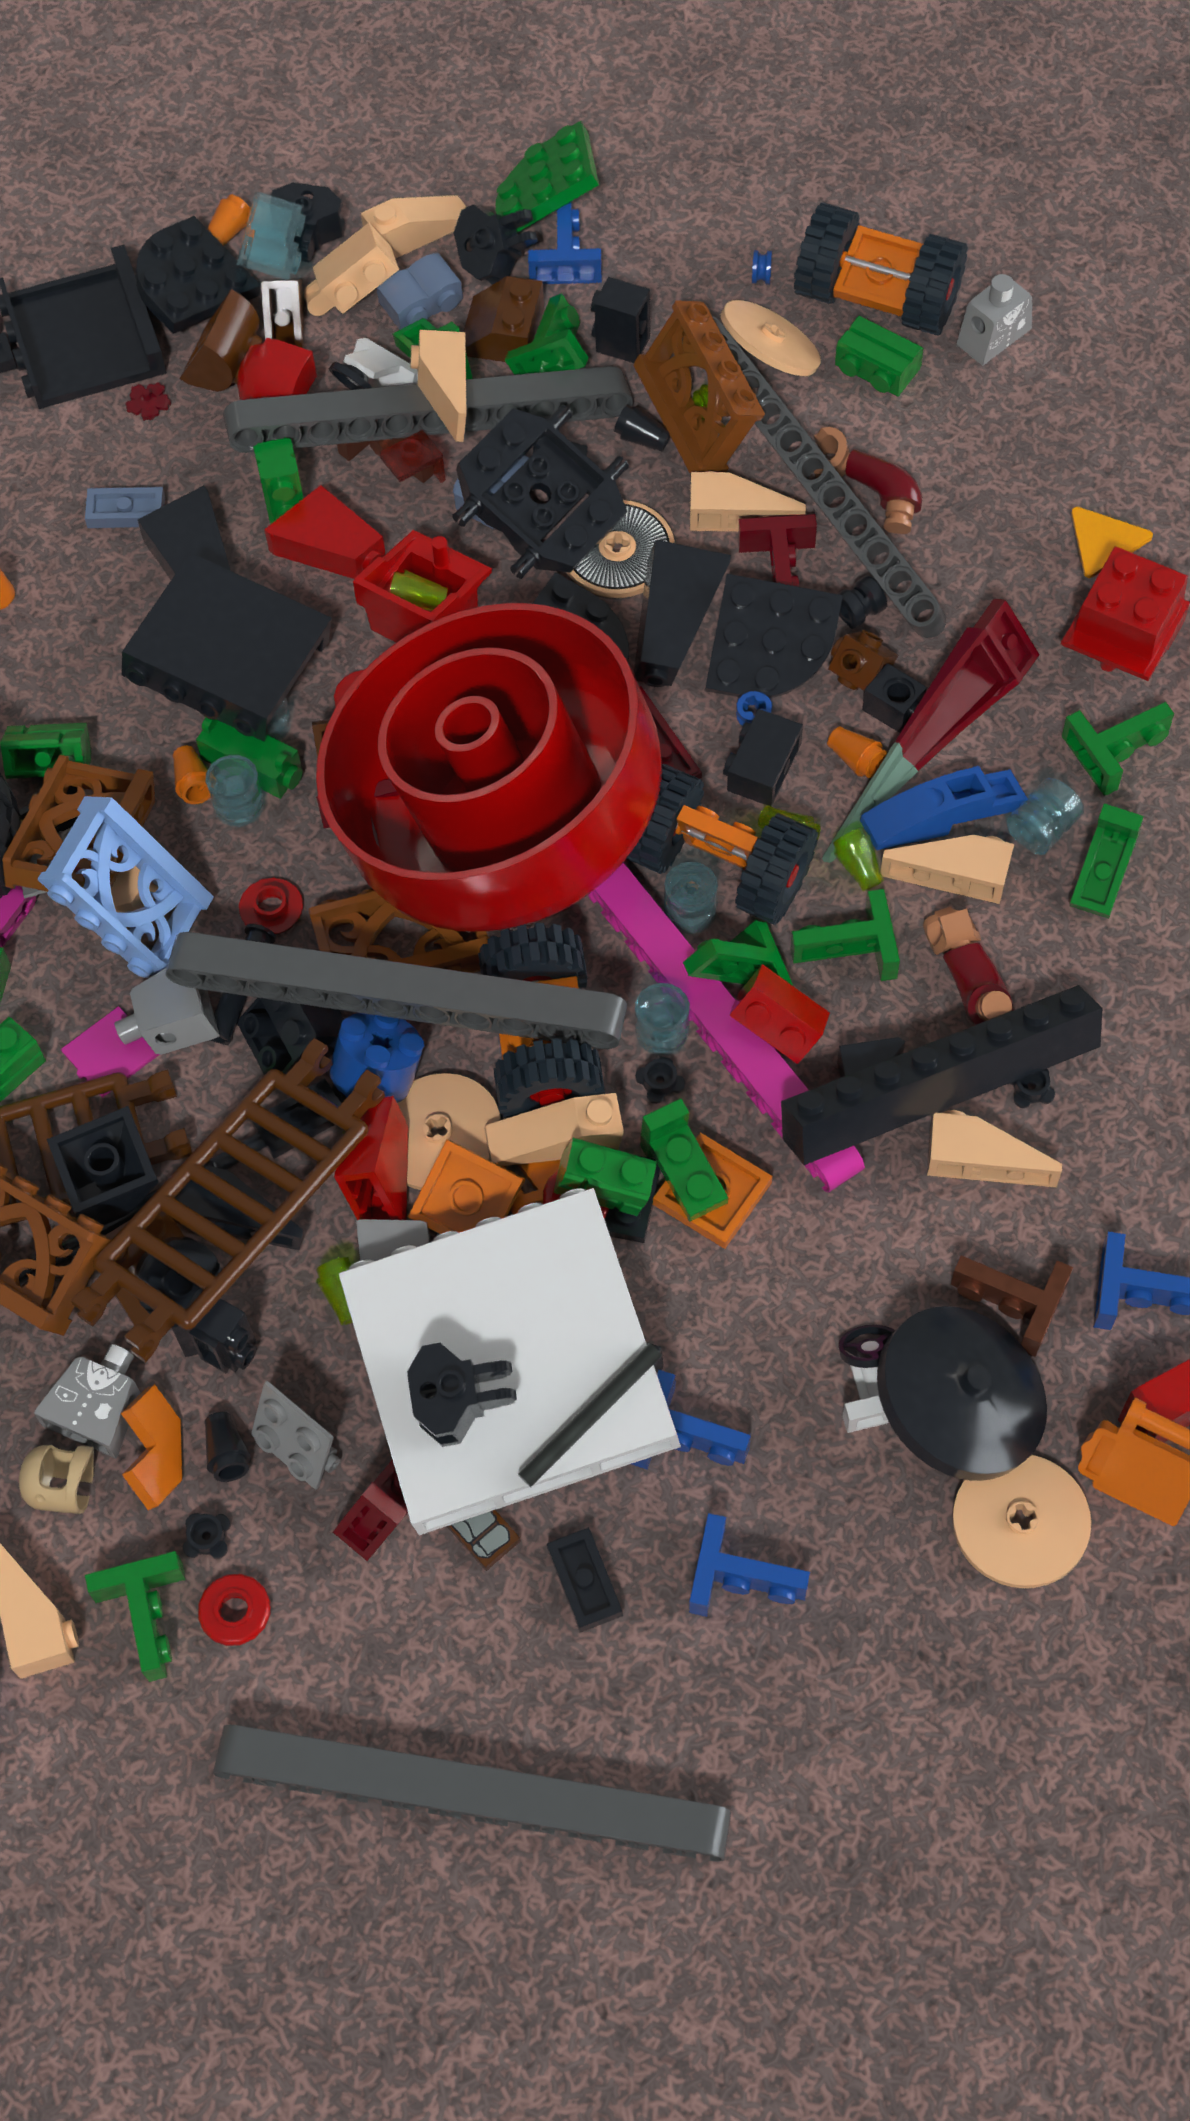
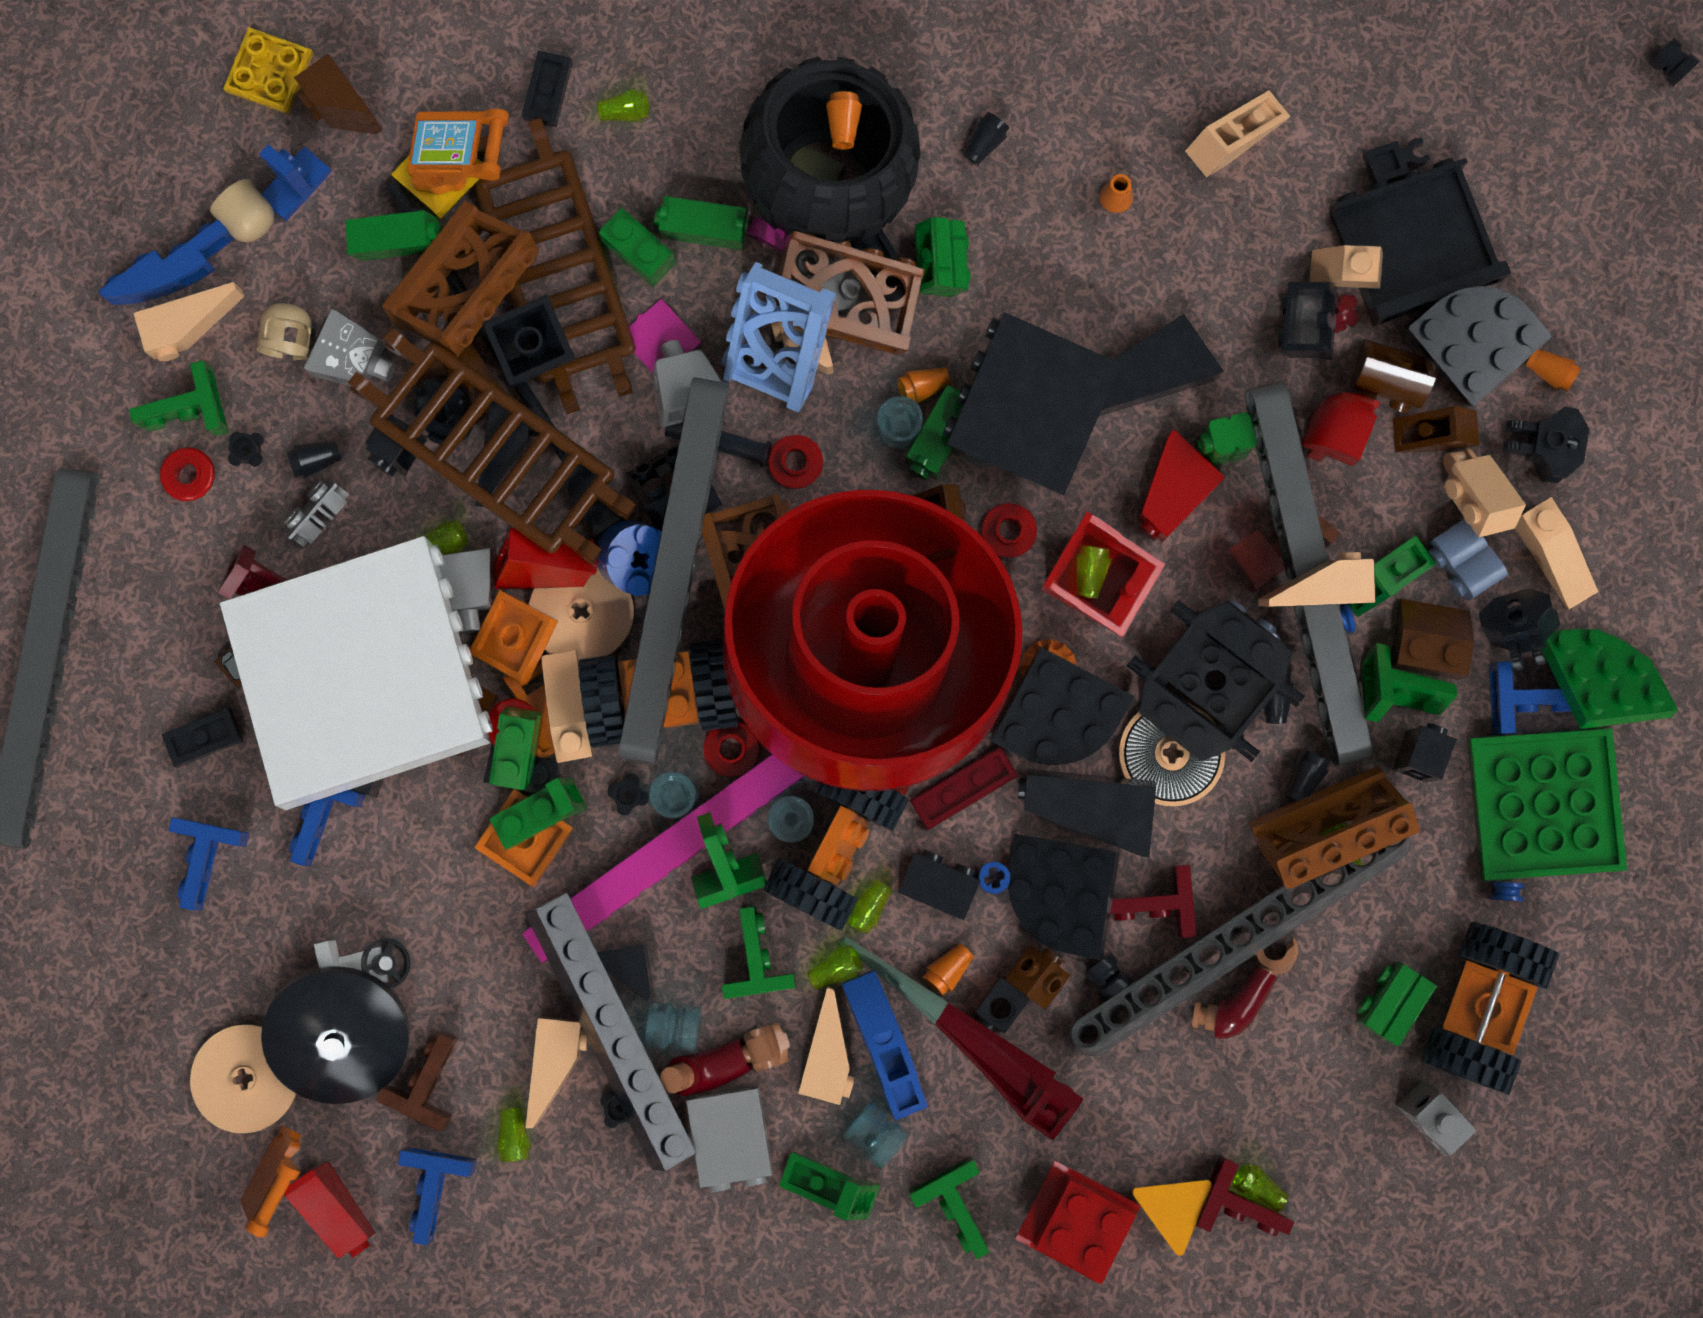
camera: 90 degrees right, 20 degrees up
(101, 380) = (1347, 266): none -> light nougat slope
(121, 505) = (1210, 301): sand blue plate -> none
(155, 419) = (1309, 320): none -> black window
(159, 1429) = (295, 409): orange tile -> none
(270, 236) = (1502, 409): clear light blue brick -> none
(372, 368) = (1363, 517): white piece -> none
(456, 1392) = (305, 626): black hinge -> none
(589, 1415) = (291, 737): pearl dark grey bar -> none
(626, 977) = (725, 766): none -> red piece
(675, 234) = (1547, 804): none -> green plate
(724, 498) = (1218, 857): light nougat slope -> none
(770, 338) = (1406, 897): light nougat piece -> none
(780, 1014) = (671, 894): red brick -> none
(933, 1013) = (673, 1027): none -> clear light blue wheel
(1057, 955) = (730, 1138): none -> light grey brick
(1073, 475) = (1257, 1186): none -> clear neon green cone
(1073, 1199) = (513, 1139): none -> clear neon green cone
(1095, 494) = (1238, 1206): none -> dark red bracket

